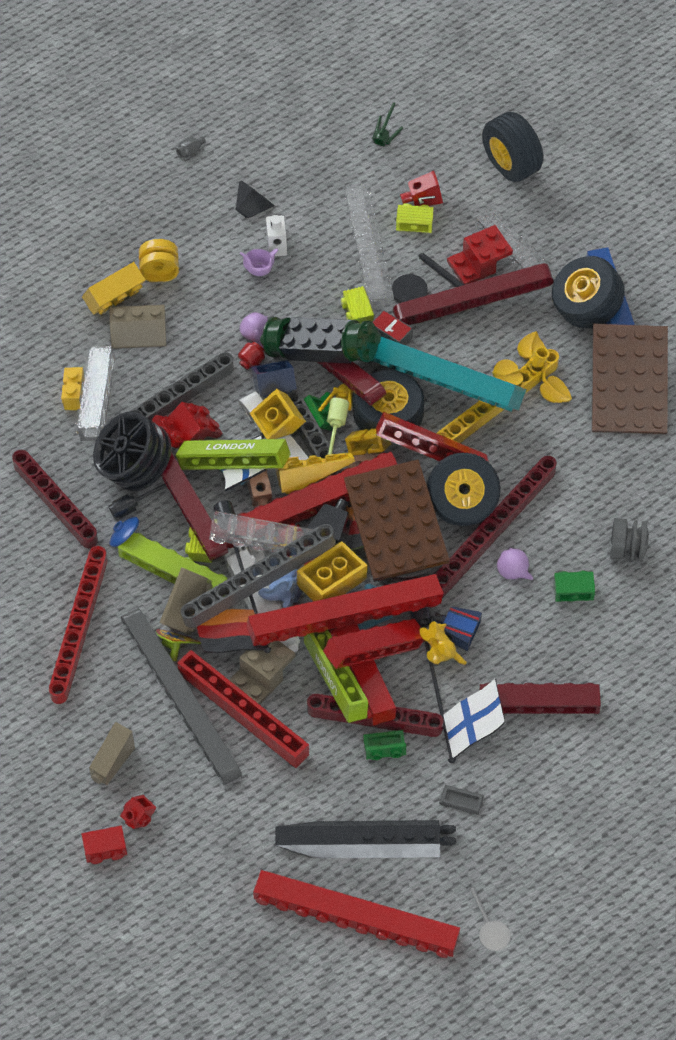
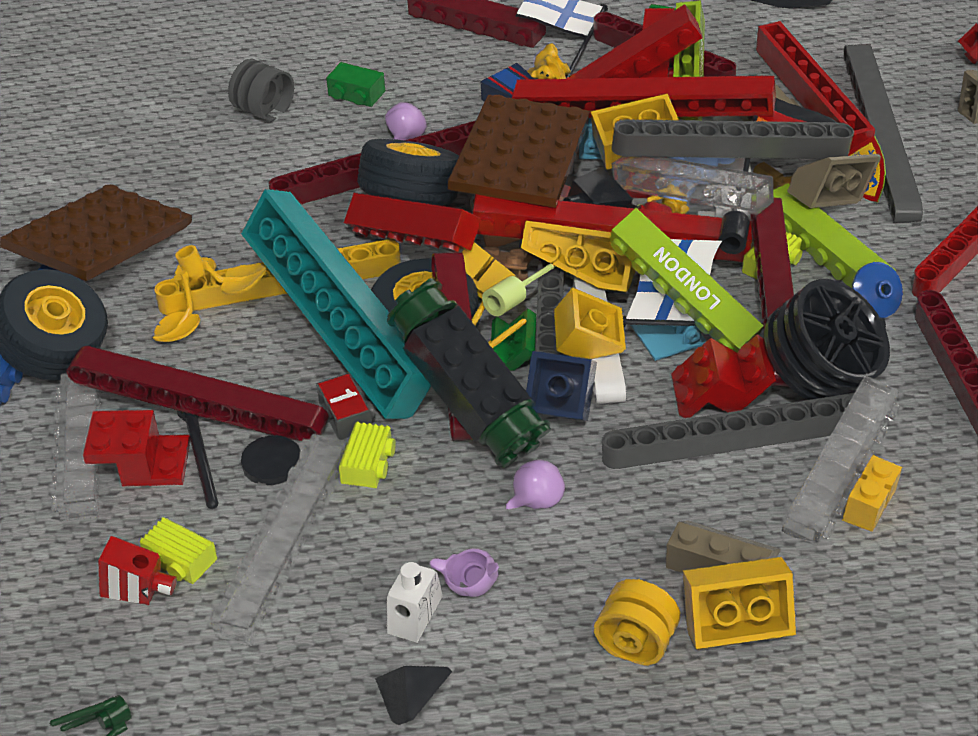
camera: 150 degrees left, 15 degrees down
(251, 355) = (569, 446): red head -> none

